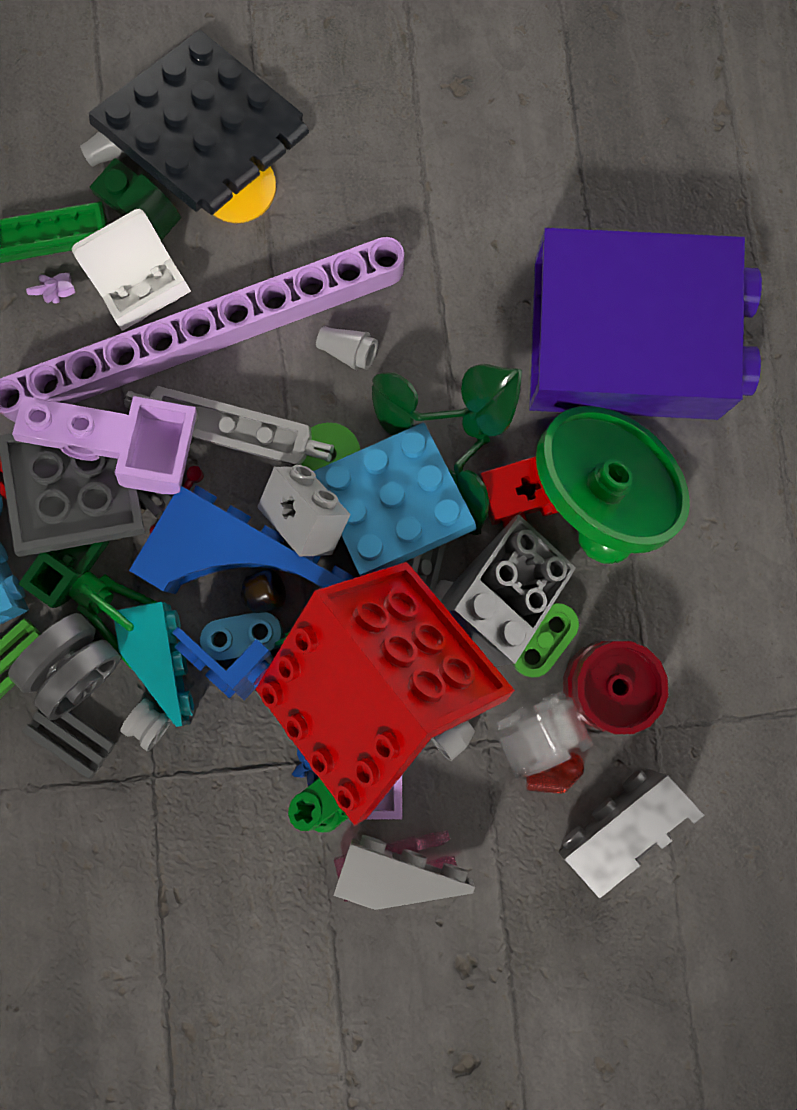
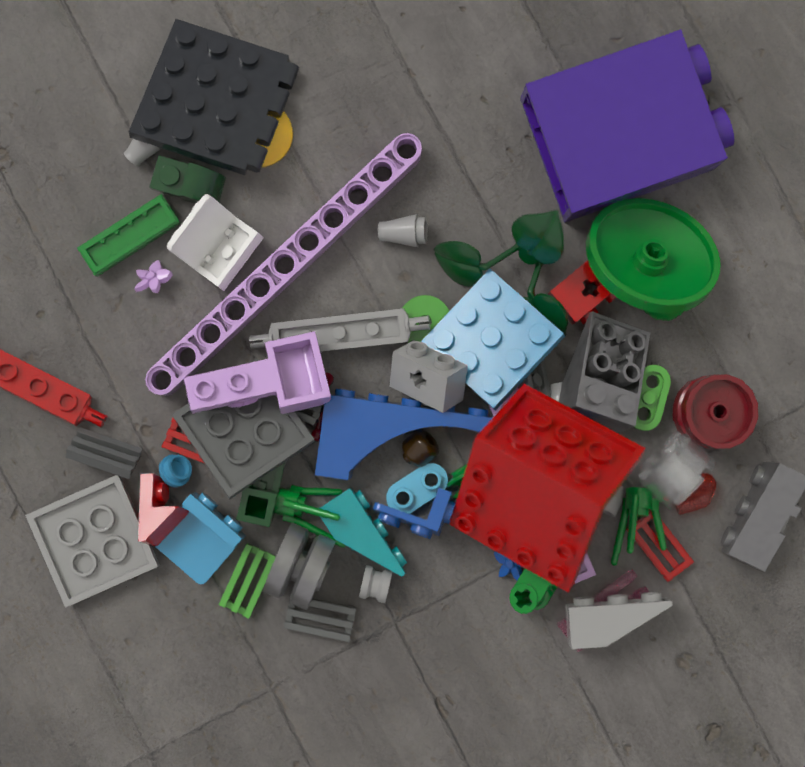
camera: 25 degrees left, 5 degrees up
(480, 781) = (677, 568): none -> red tile
(481, 756) = (637, 503): none -> green plant

